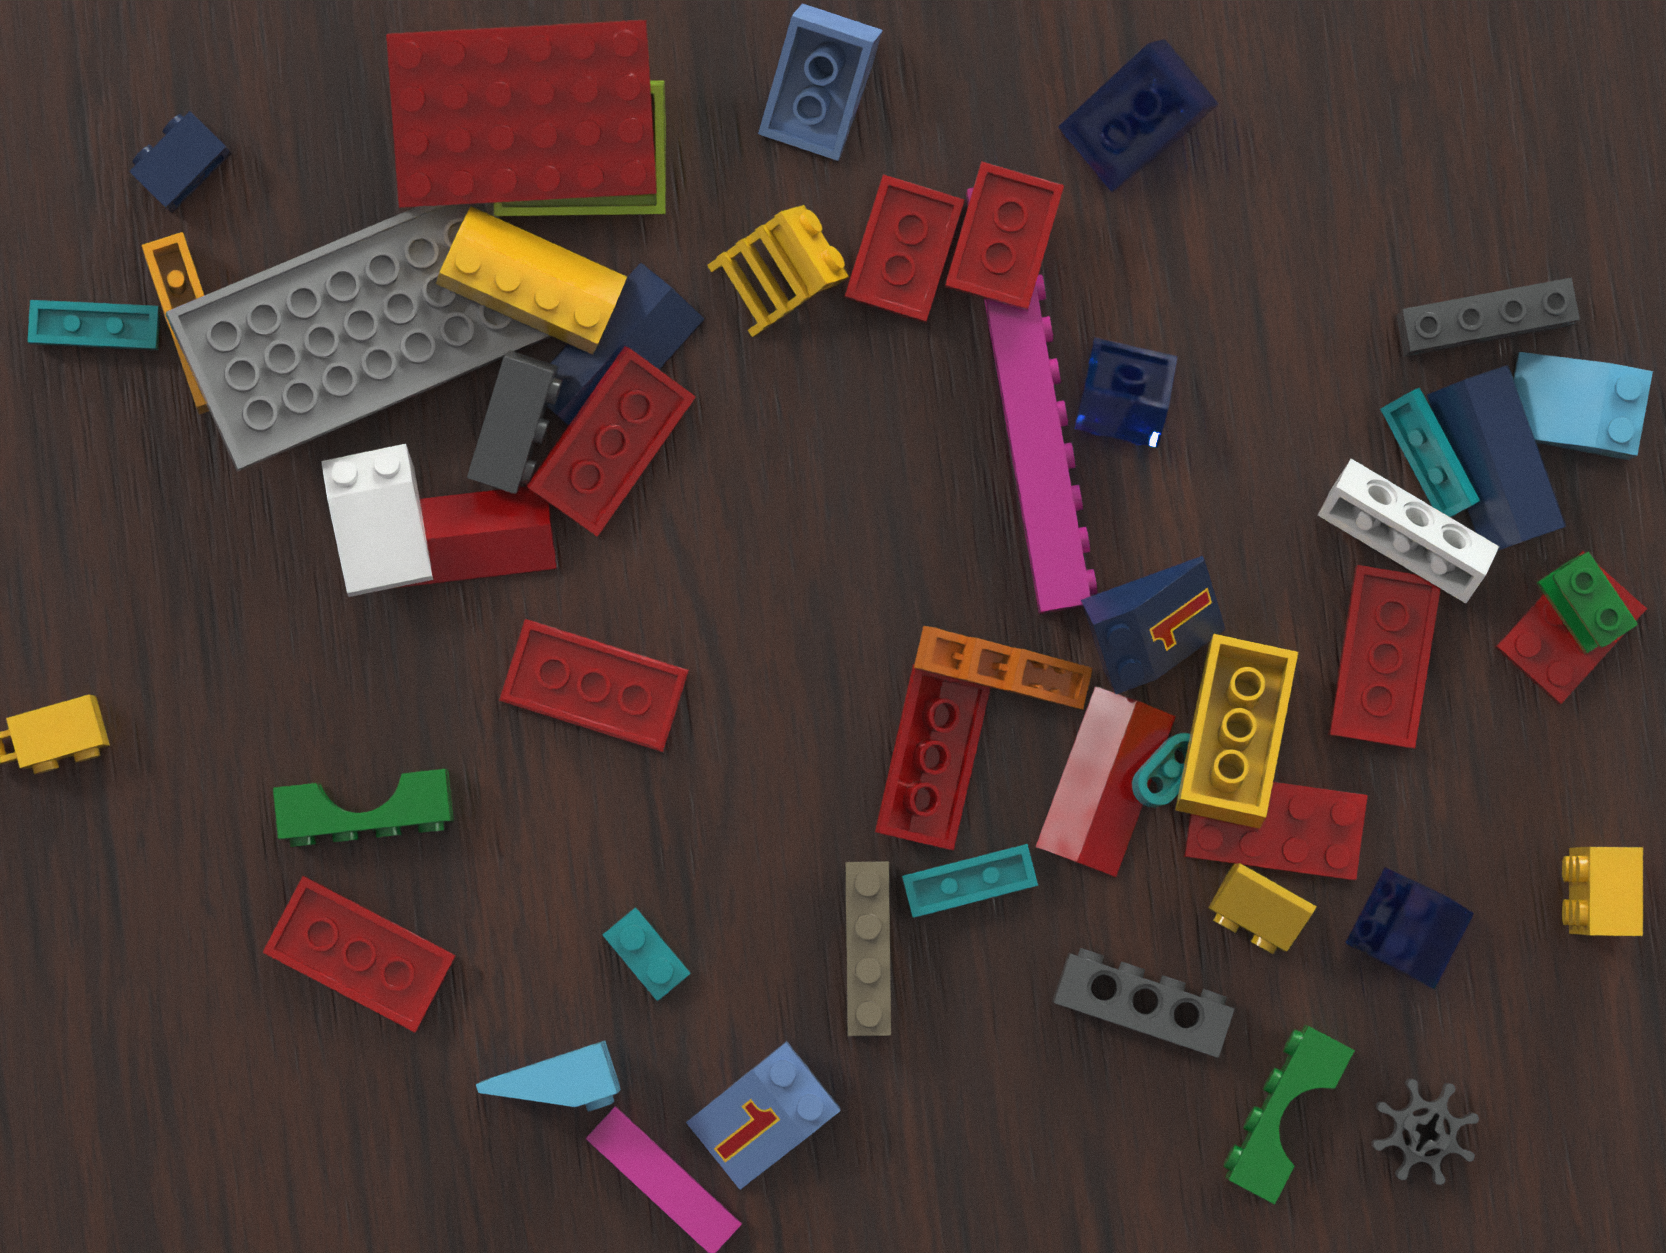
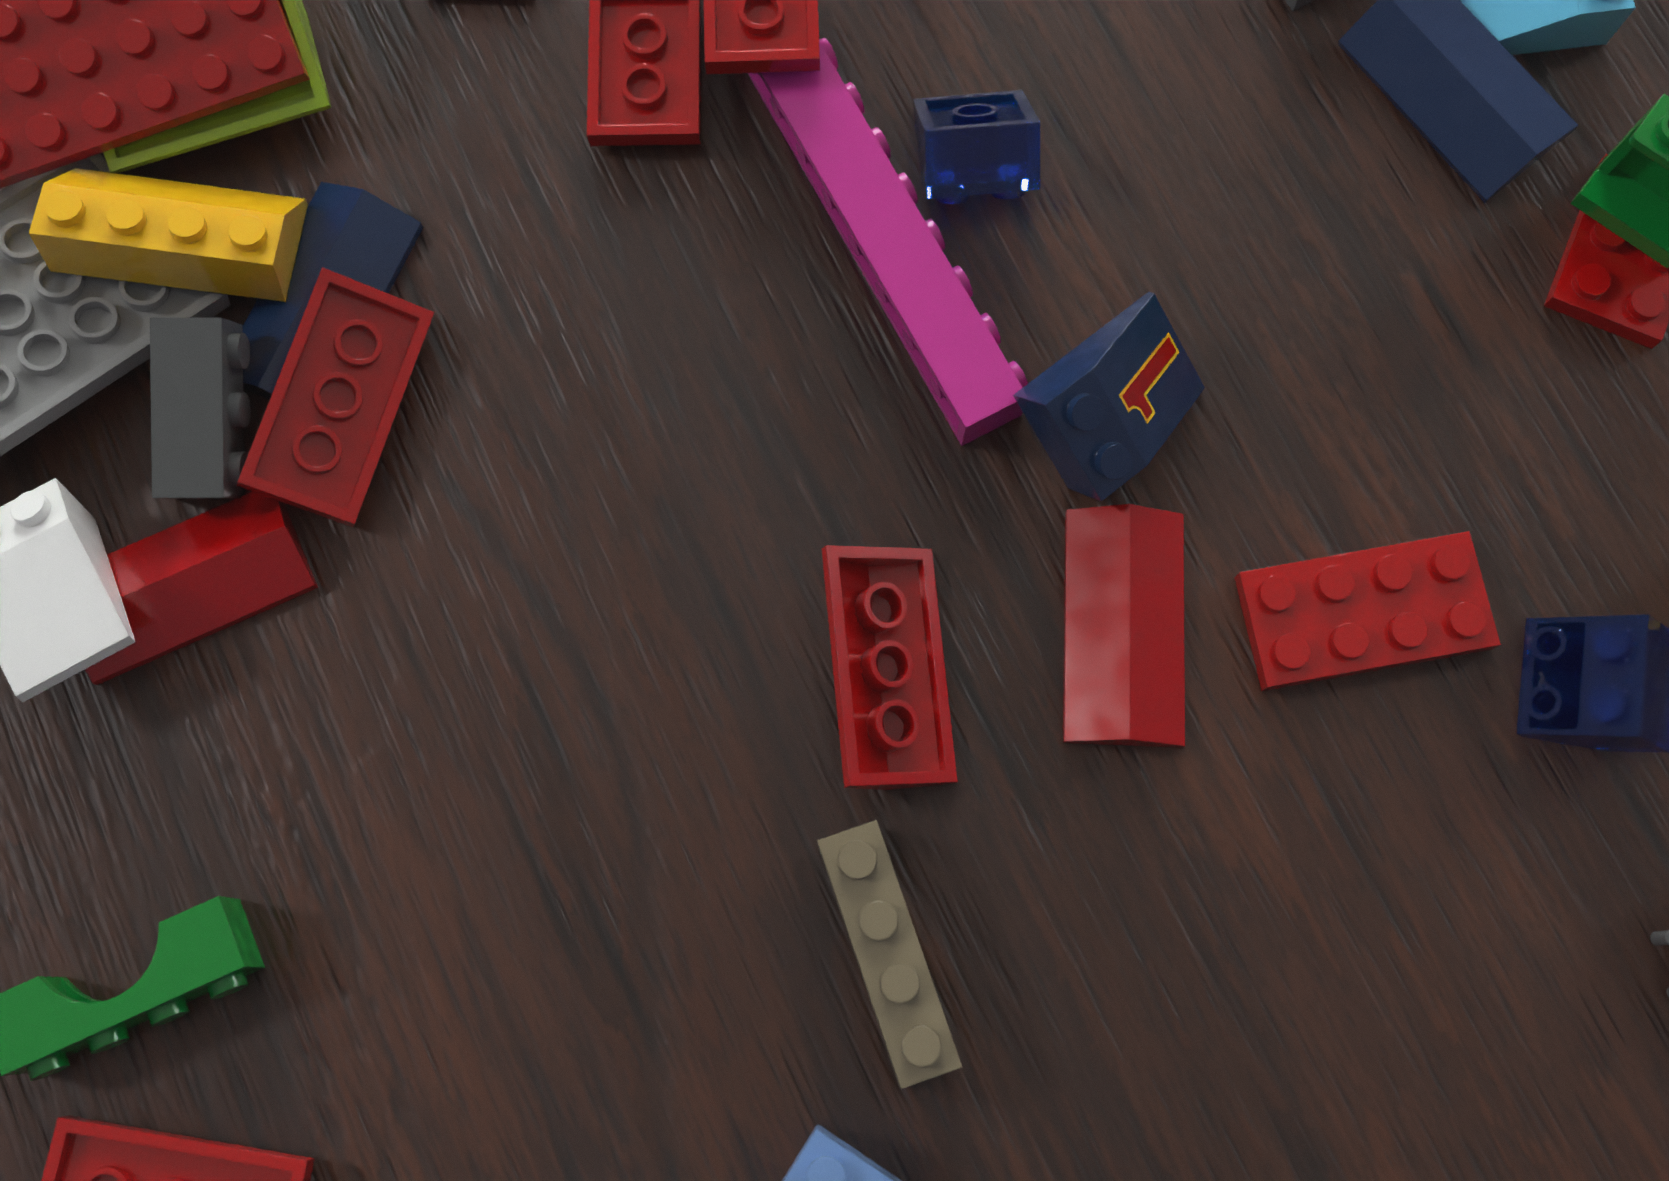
camera: 20 degrees left, 10 degrees down
(594, 685) = (406, 720): red tile -> none
(646, 954) = (583, 1065): teal plate -> none
(799, 252) = (513, 100): yellow plate -> none
(970, 880) = (993, 814): teal plate -> none
(1003, 667) = (939, 519): orange slope -> none
(1163, 770) = (1201, 585): teal plate -> none
(1204, 1035) = (1389, 892): dark grey brick -> none
(1236, 731) = (1280, 497): yellow brick -> none
(1260, 908) = (1400, 716): yellow slope -> none
(1311, 1063) = (1530, 1064): green arch -> none
(1384, 657) = (1420, 355): red plate -> none
(1408, 531) = (1392, 189): white brick -> none
(1429, 453) = (1375, 99): teal plate -> none

